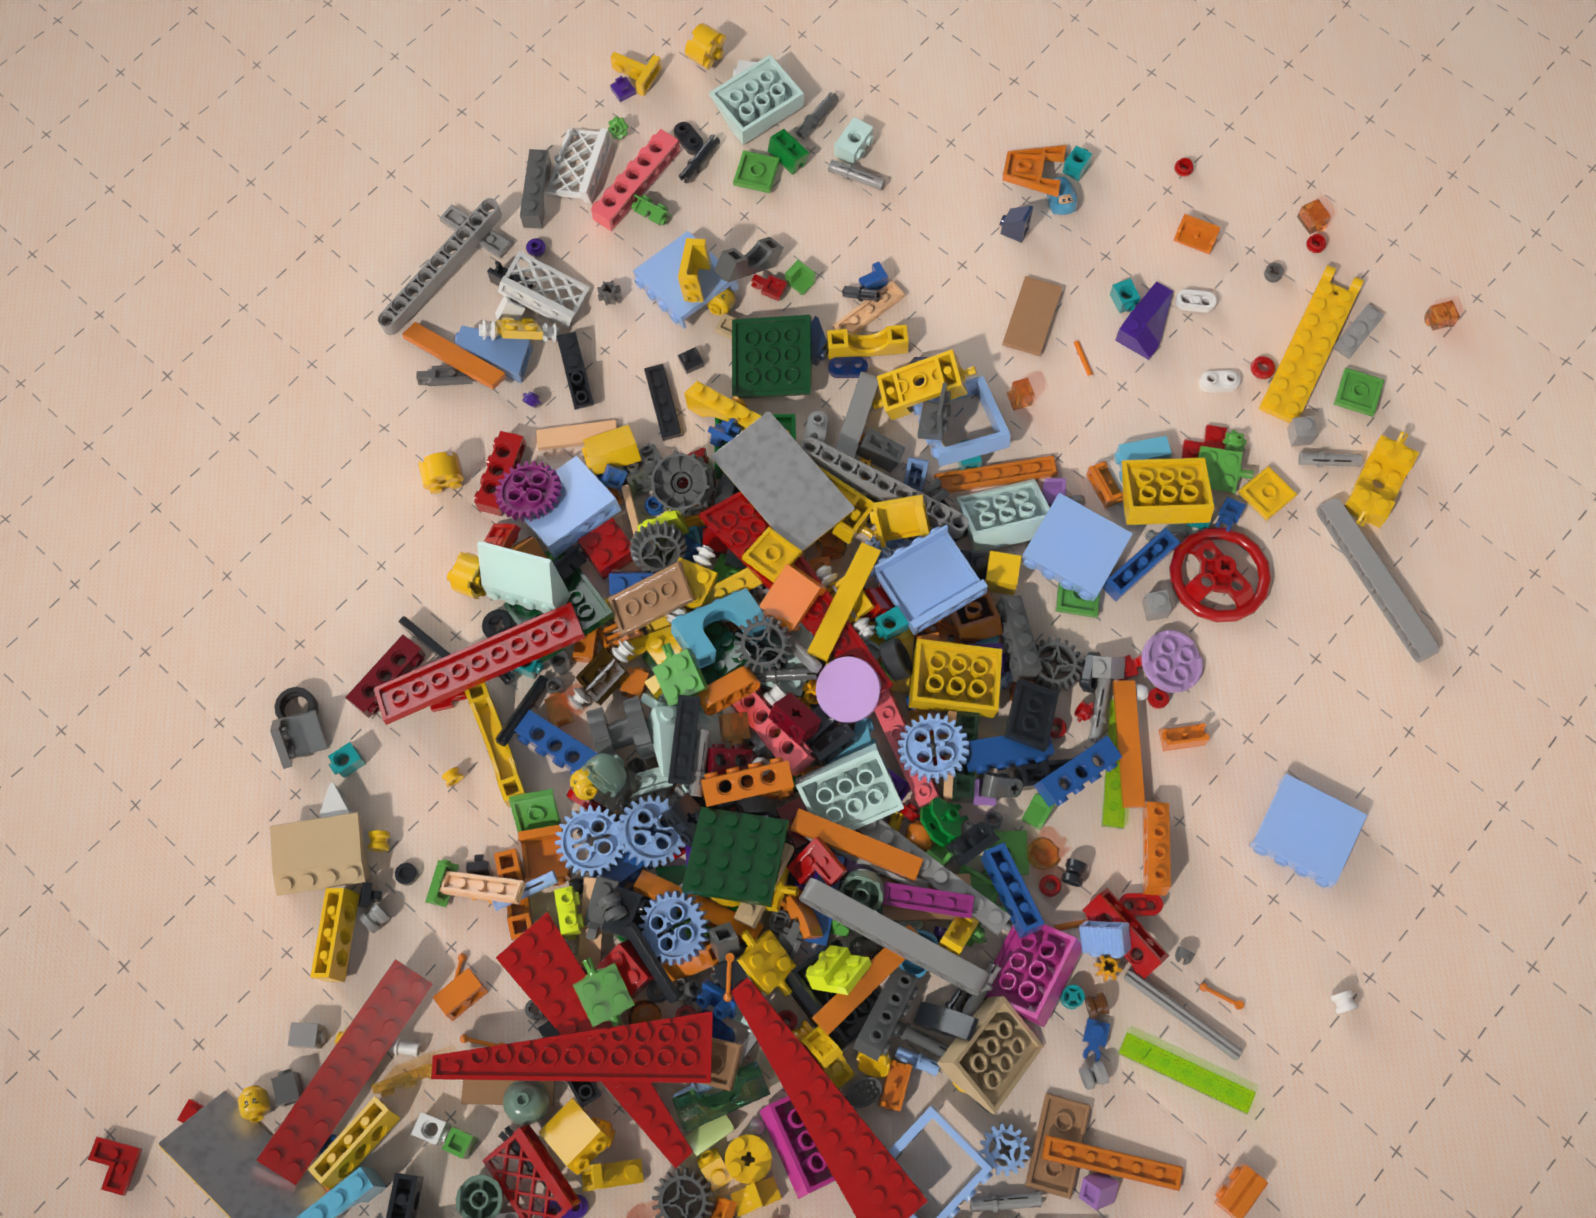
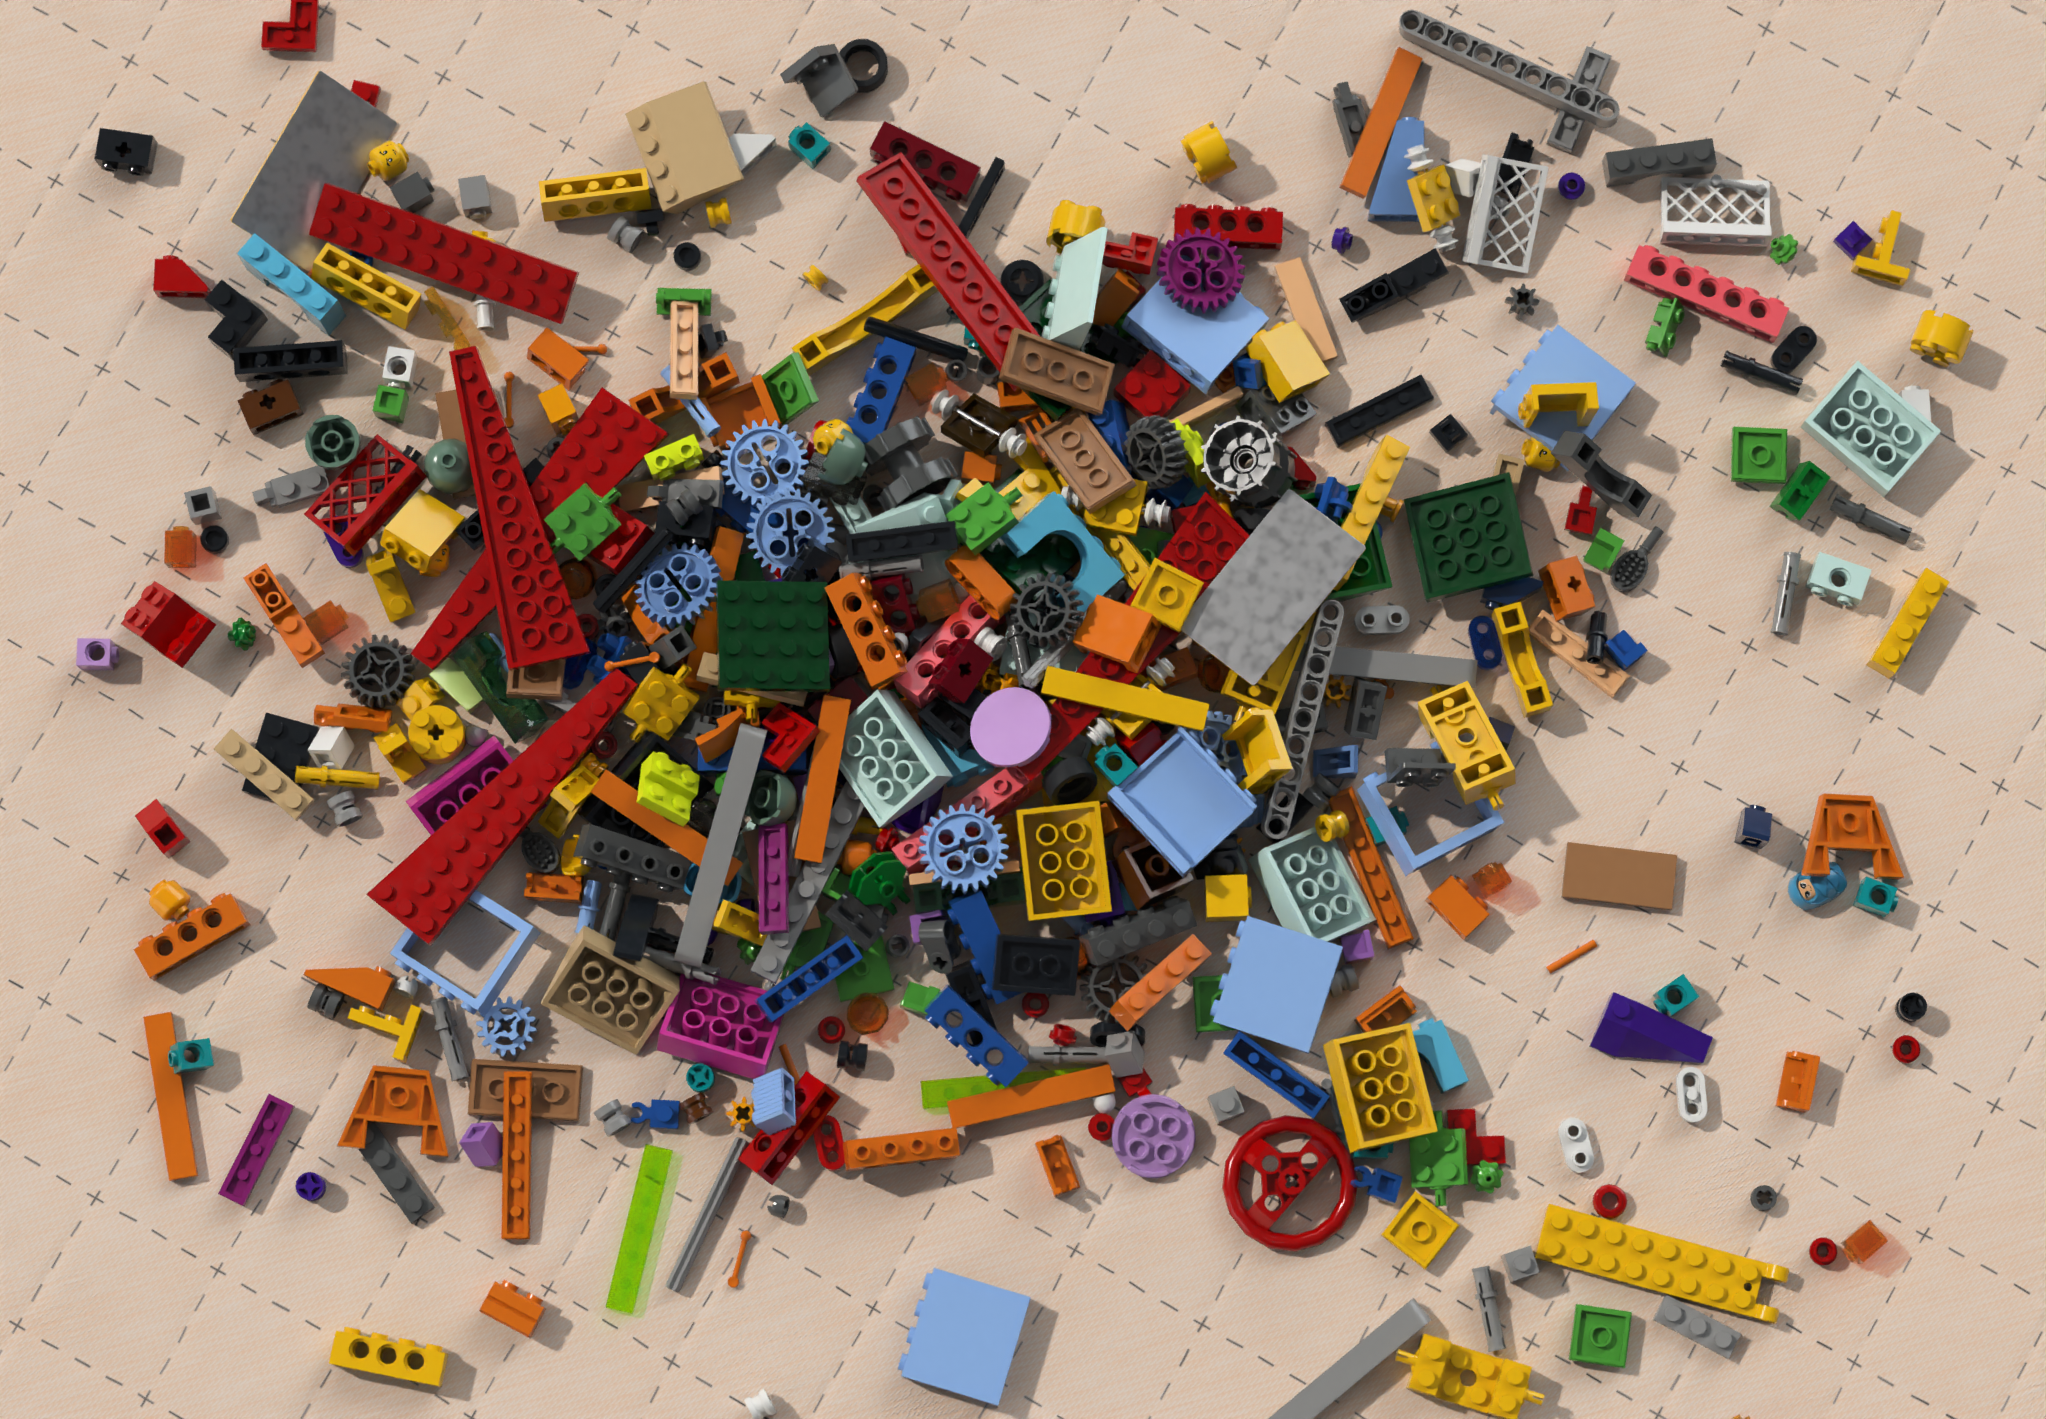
camera: 75 degrees right, 10 degrees up
(503, 999) = (559, 409): none -> light orange brick
(578, 604) = (1056, 371): none -> medium nougat tile
(814, 261) = (1633, 565): none -> dark grey piece
(823, 303) = (1566, 588): none -> orange brick
(909, 116) = (1908, 623): none -> yellow arch
(962, 490) = (1332, 825): none -> yellow wheel
(1036, 420) = (1457, 906): none -> orange brick
(1070, 639) = (1159, 982): none -> orange arch
(1157, 157) = (1914, 1004): none -> black wheel

